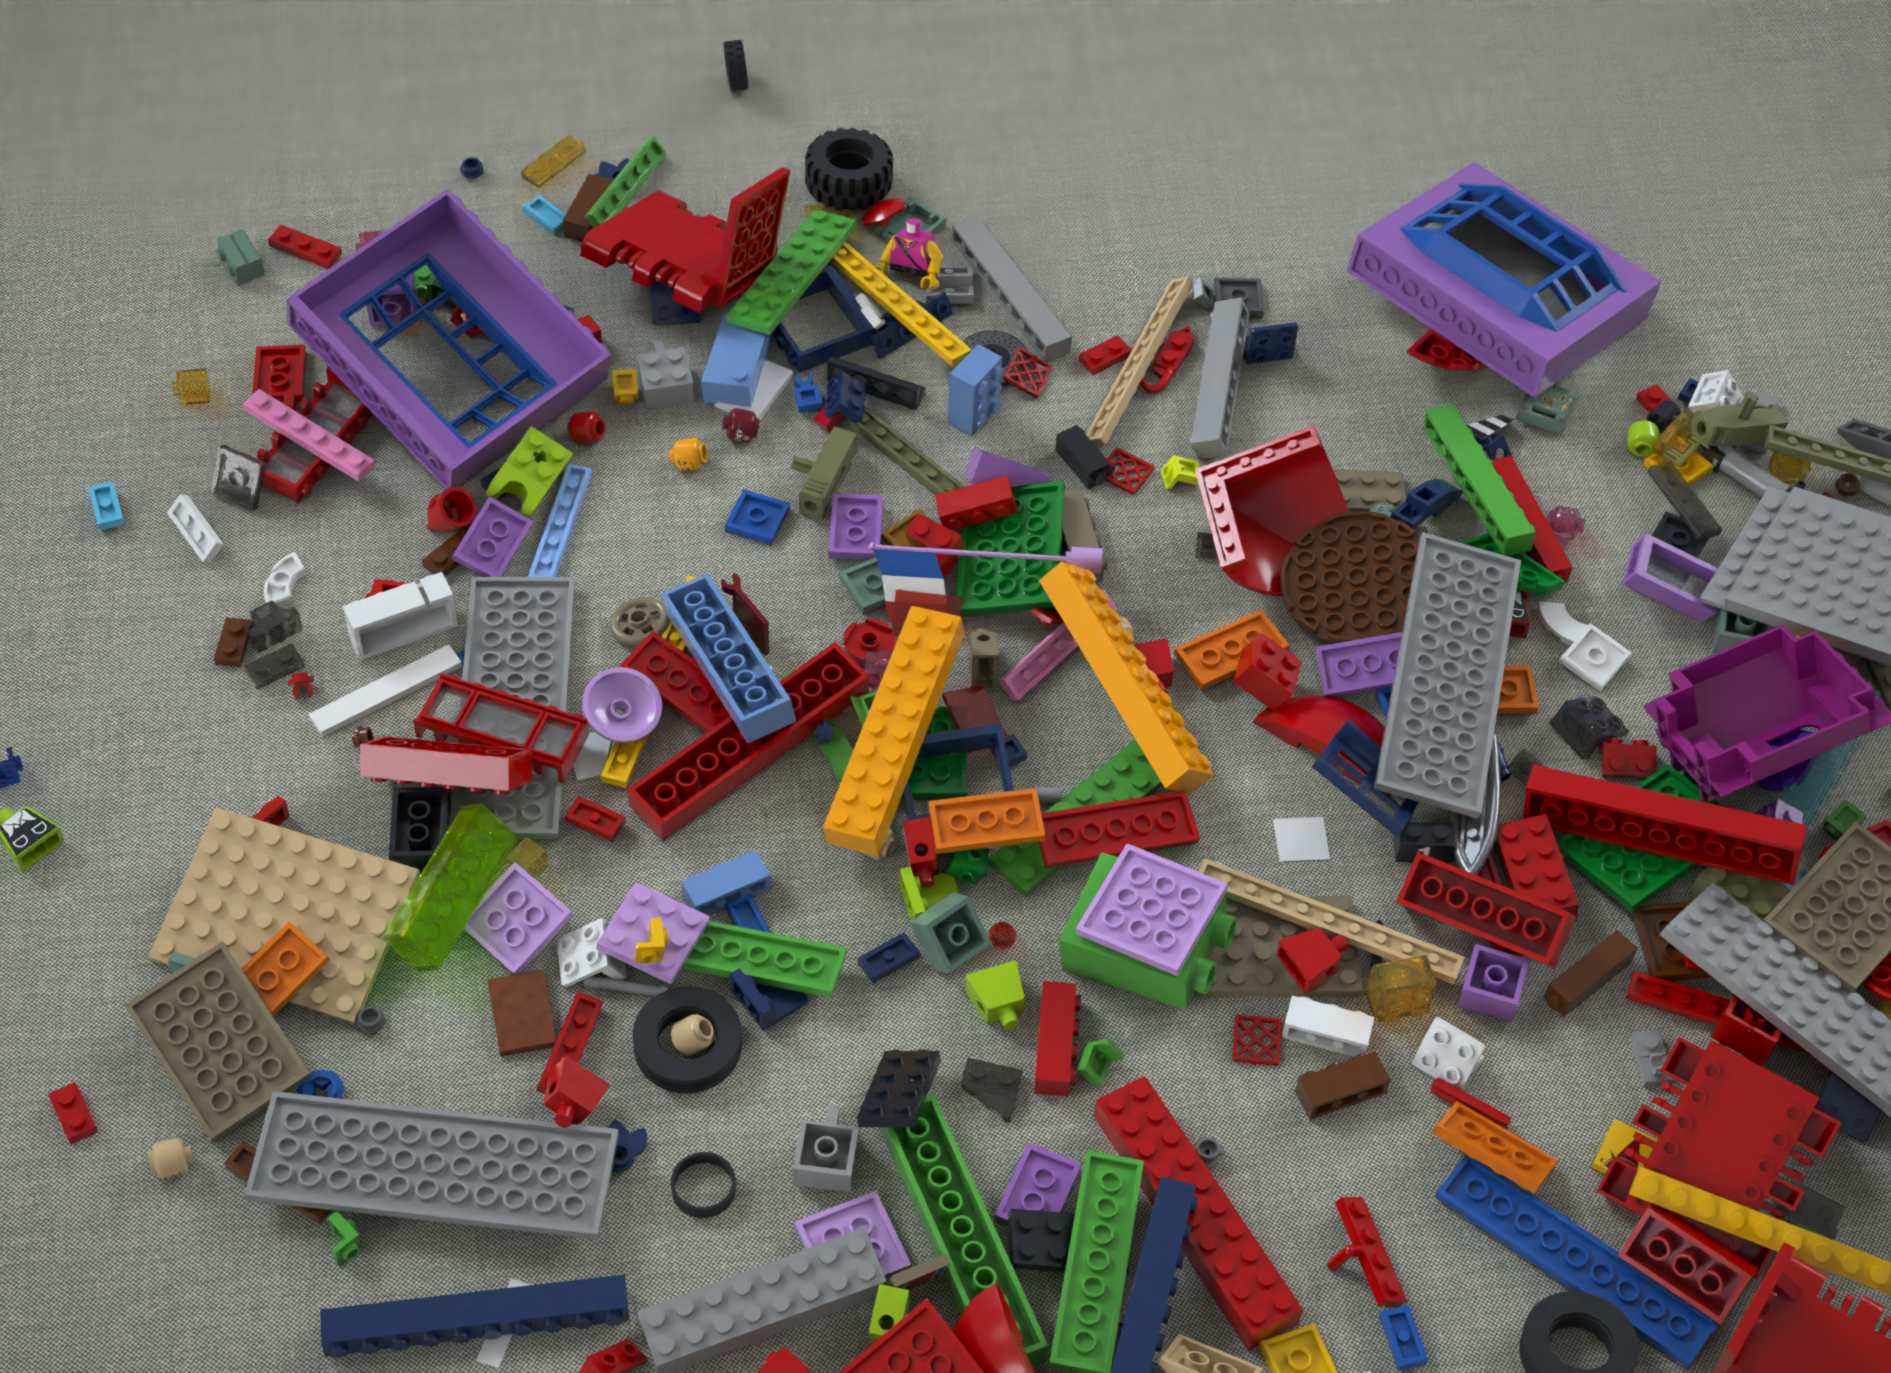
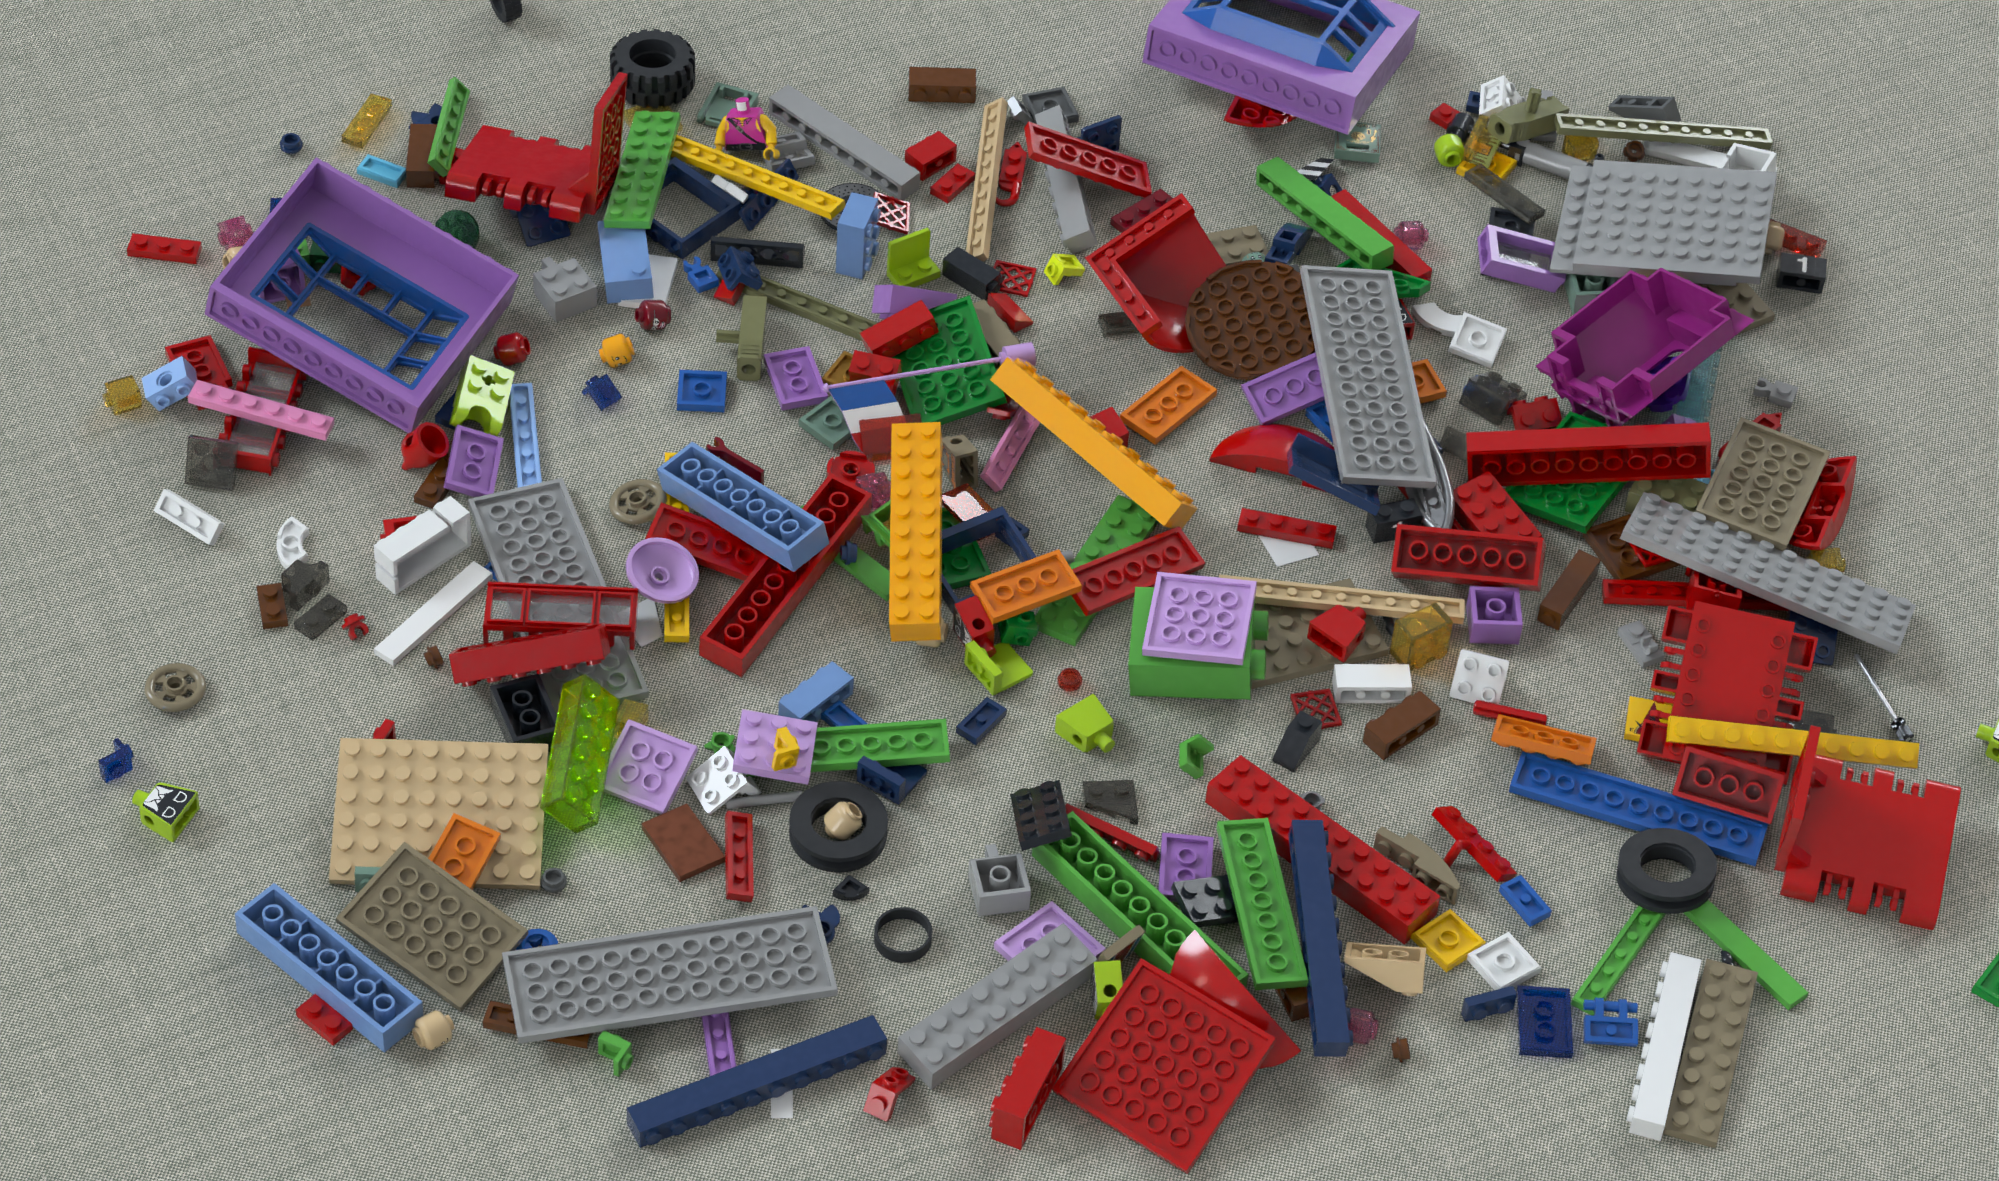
camera: 20 degrees left, 5 degrees down
(94, 700) = (175, 687): none -> dark tan plate
(98, 1058) = (329, 966): none -> medium blue brick
(106, 506) = (93, 517): medium azure plate -> none
(237, 384) = (169, 383): none -> light blue brick
(240, 256) = (108, 270): sand green brick -> none
(457, 1260) = (718, 1042): none -> medium lavender tile
(572, 1092) = (763, 886): red torso -> none
(585, 294) = (460, 226): none -> clear green plate
(595, 819) = (675, 672): red plate -> none
(606, 905) = (720, 738): none -> bright green plate
(625, 386) = (530, 305): yellow bracket -> none
(656, 494) = (602, 391): none -> clear blue bracket
(671, 1115) = (850, 889): none -> black tile
(883, 211) = (699, 100): red dish -> none
(950, 932) = (1029, 685): sand green brick -> none
(979, 1137) = (1120, 839): none -> red plate
(1024, 428) = (910, 261): none -> lime bracket
(1055, 1038) = (1151, 748): red brick -> none
(1092, 321) = (931, 154): none -> red brick
(1106, 506) = (1009, 311): none -> red slope
(1135, 249) = (942, 84): none -> reddish brown brick
(1219, 1074) = (1298, 741): none -> black slope
(1246, 363) = (1087, 160): none -> red plate
(1267, 671) = (1210, 413): red brick -> none
(1282, 428) = (1139, 210): none -> dark red plate
(1305, 1265) = (1421, 860): none -> dark tan slope
(1306, 820) = (1287, 528): none -> red plate
(1843, 819) = (1727, 421): bright green bracket -> none

